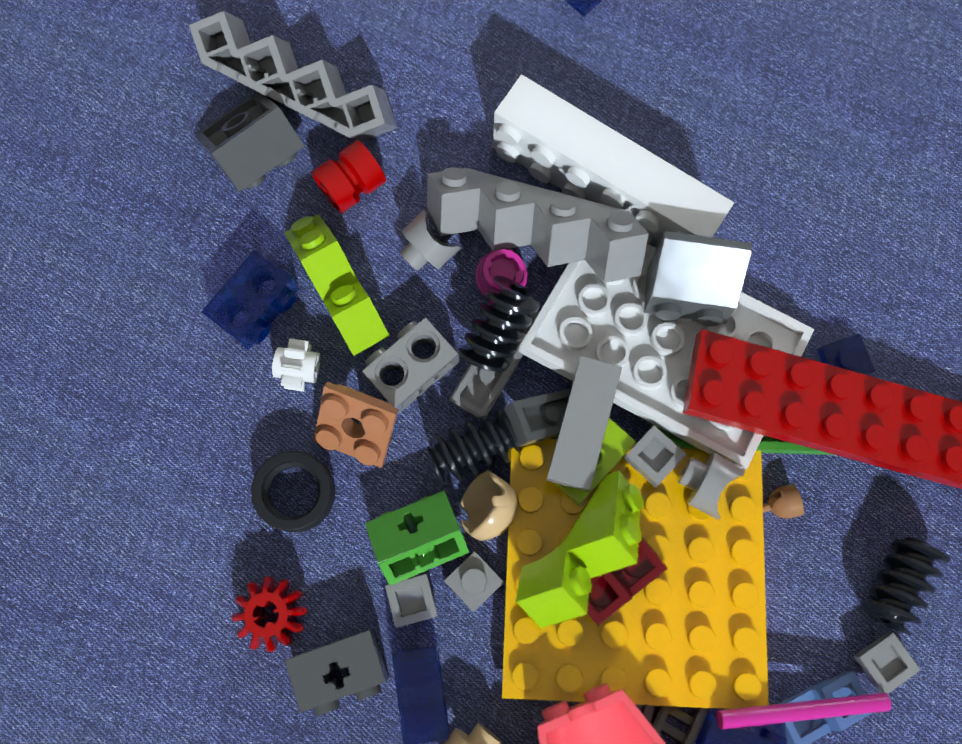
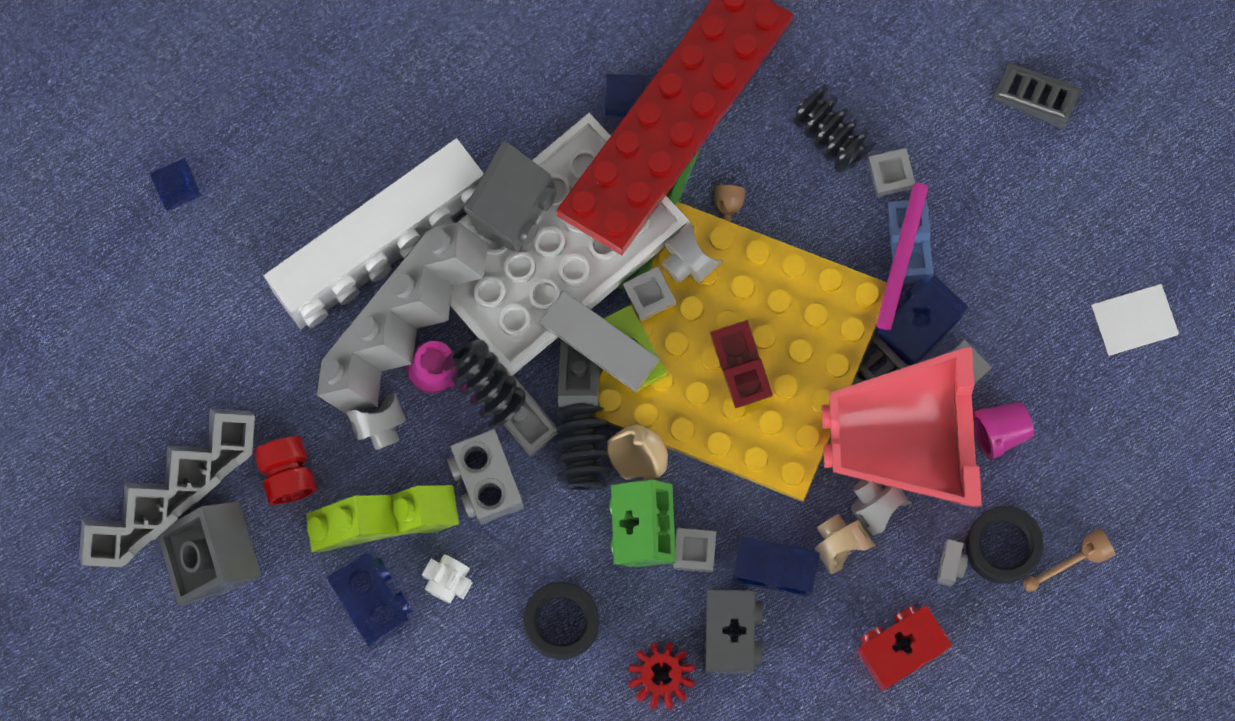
camera: 65 degrees left, 0 degrees up
(339, 432) = (540, 543): nougat piece -> none
(474, 581) = (698, 491): light grey plate -> none
(599, 543) = (706, 368): lime arch -> none

